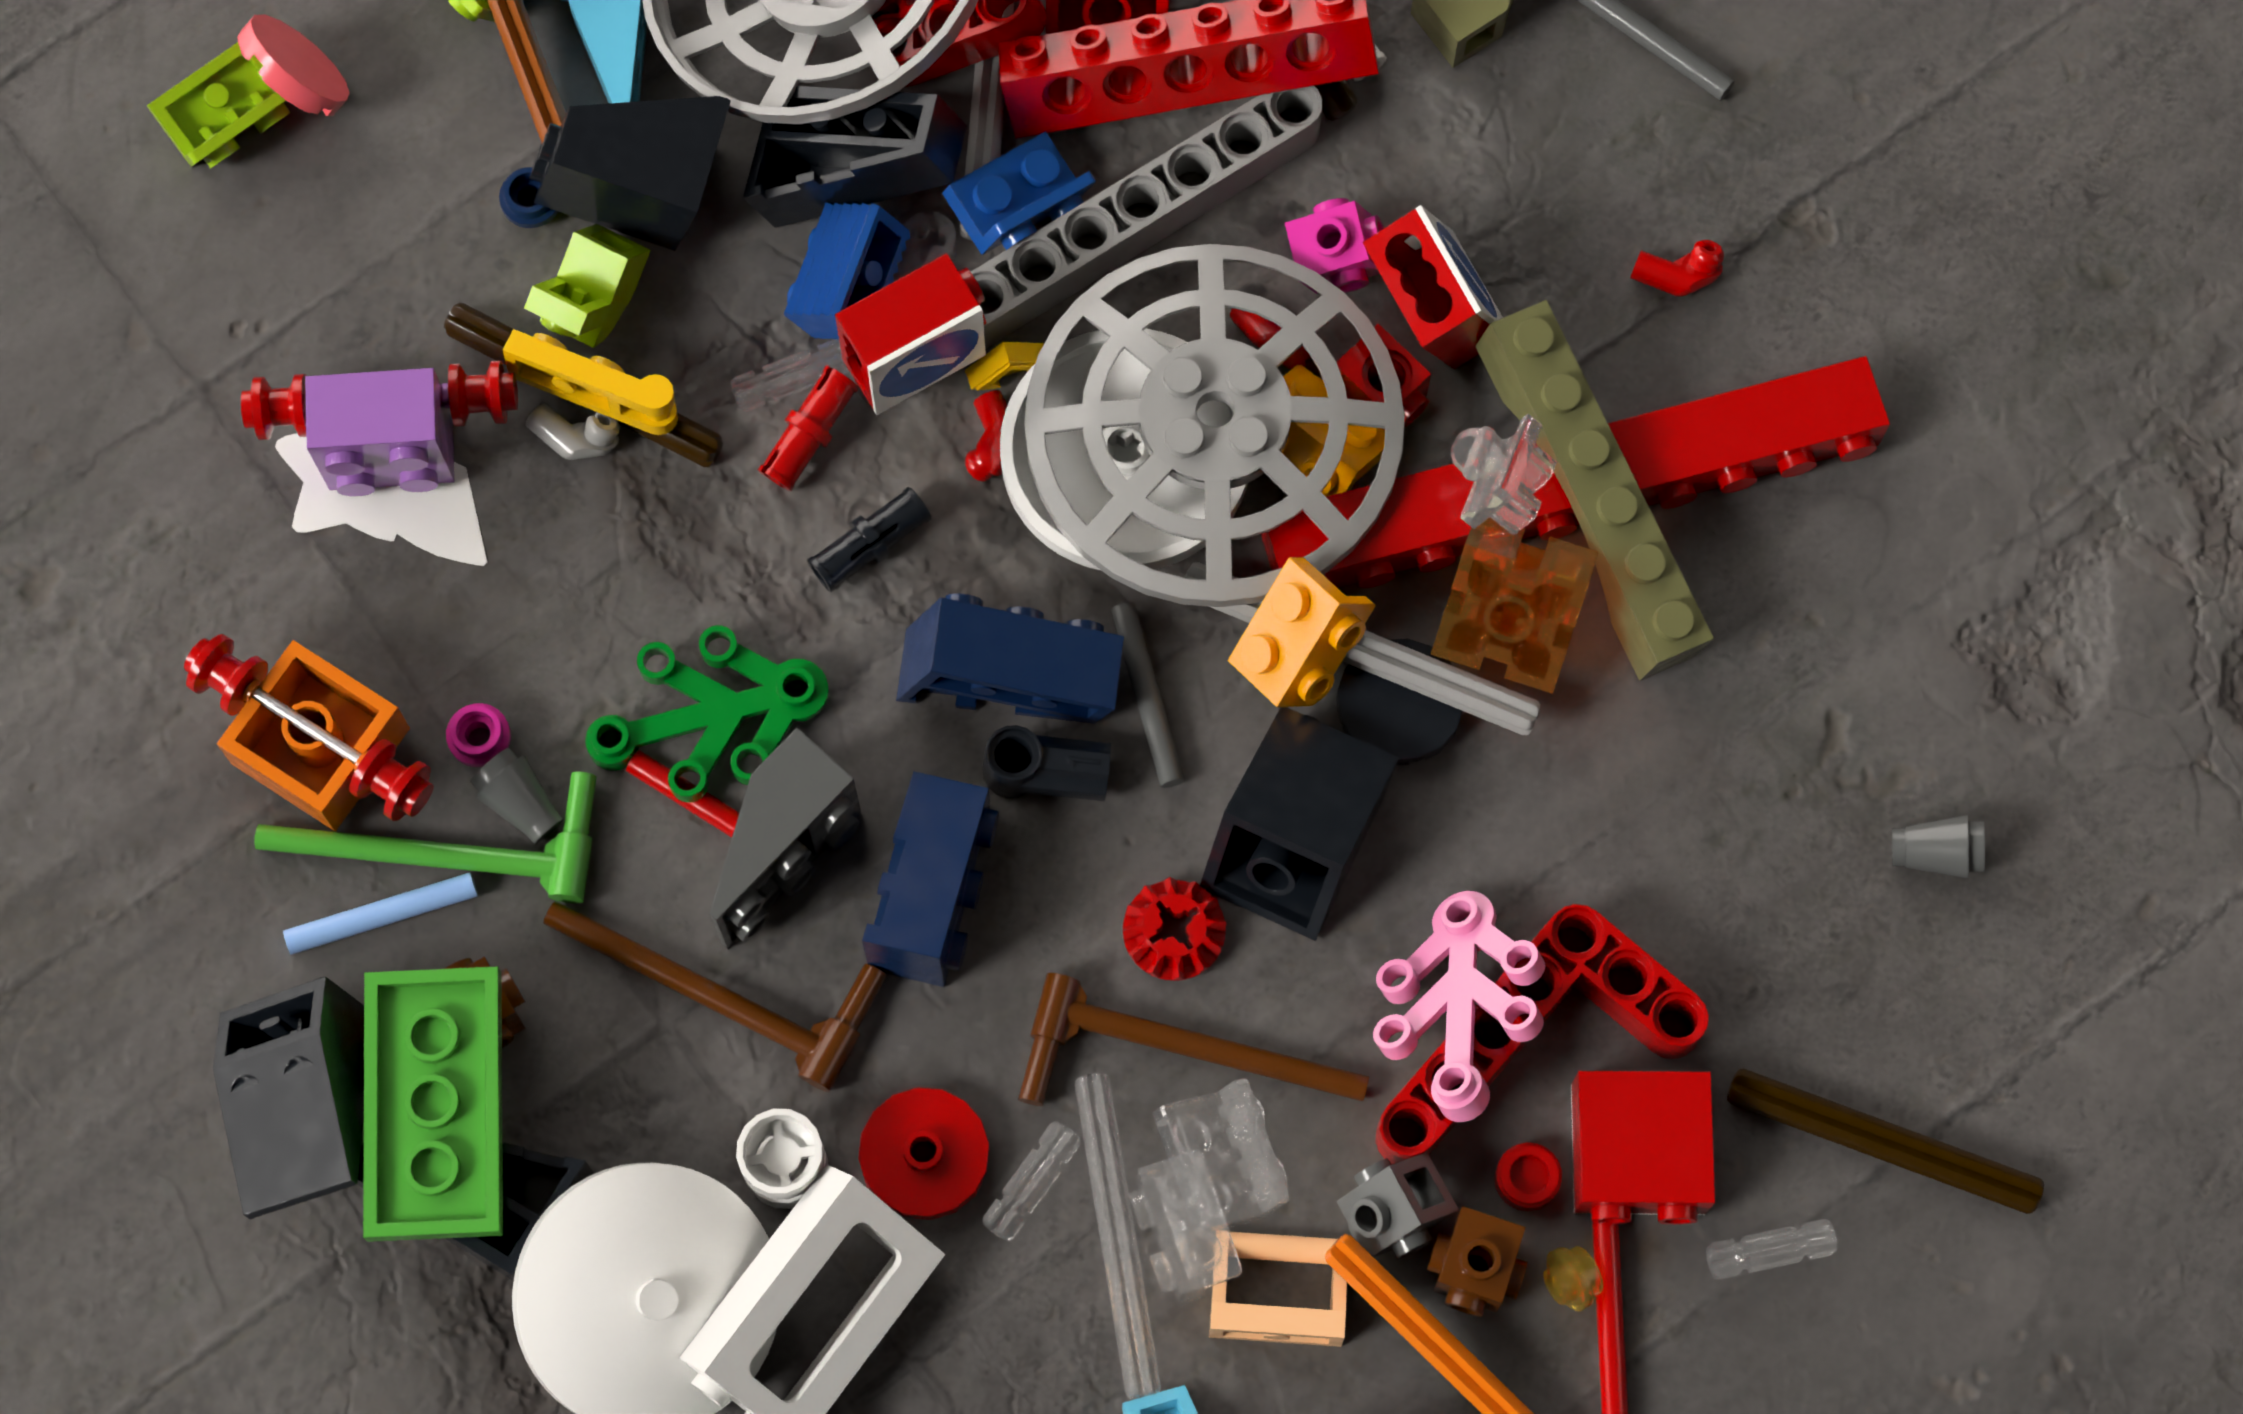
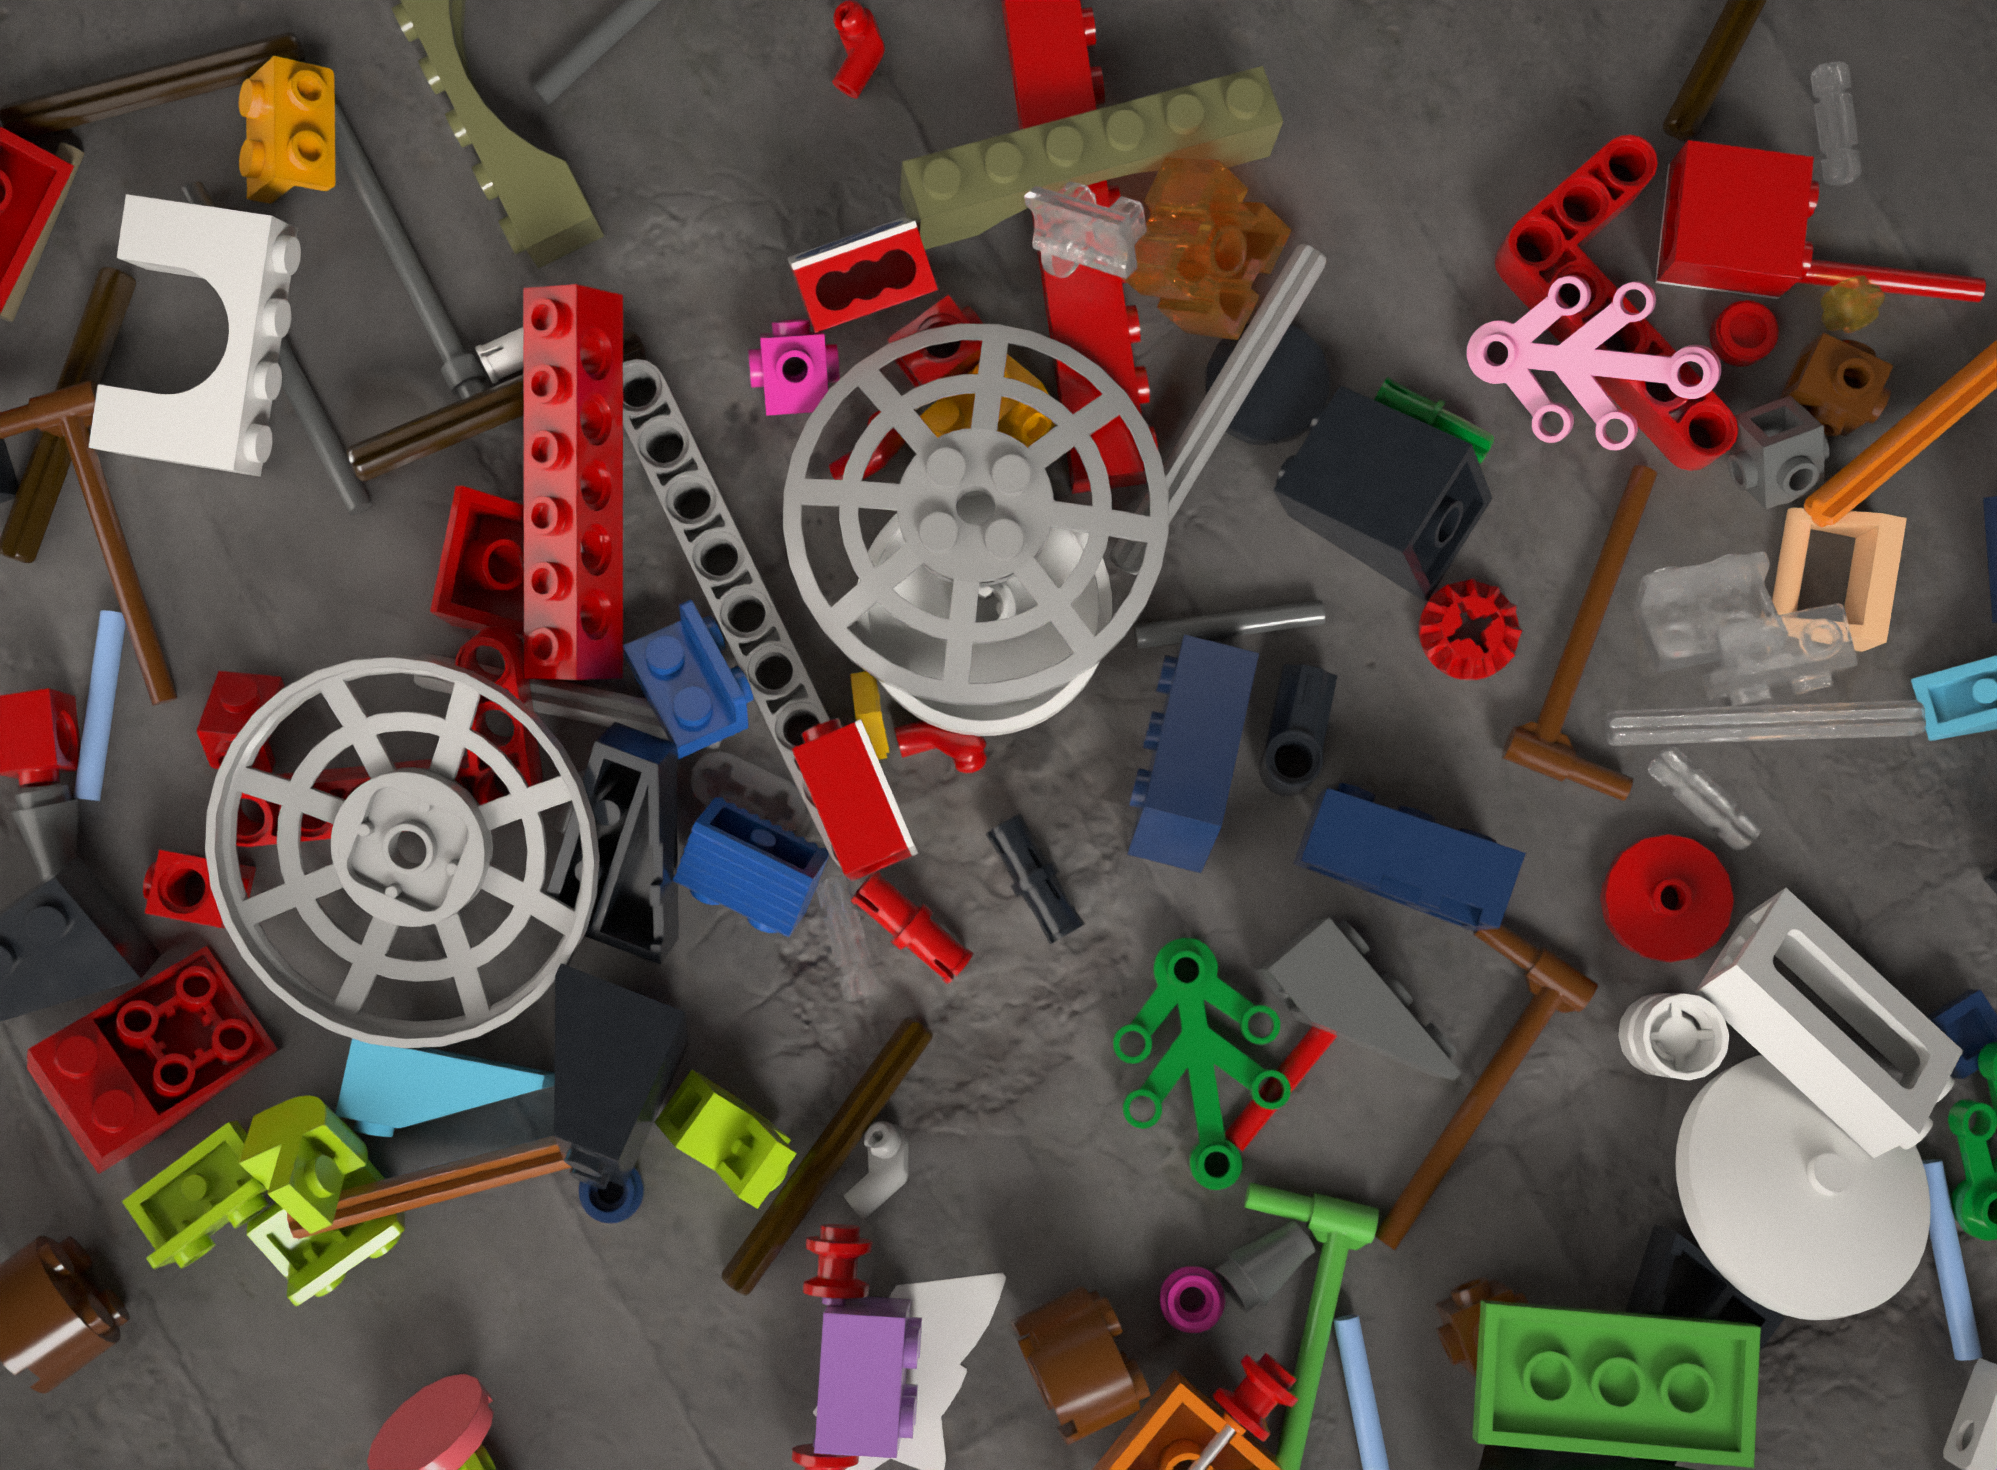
camera: 80 degrees left, 10 degrees up
(407, 622) = (1079, 1363): none -> reddish brown brick
(592, 382) = (842, 1141): yellow plate -> none
(1300, 636) = (1212, 461): light orange bracket -> none
(1381, 863) = (1432, 413): none -> green axle

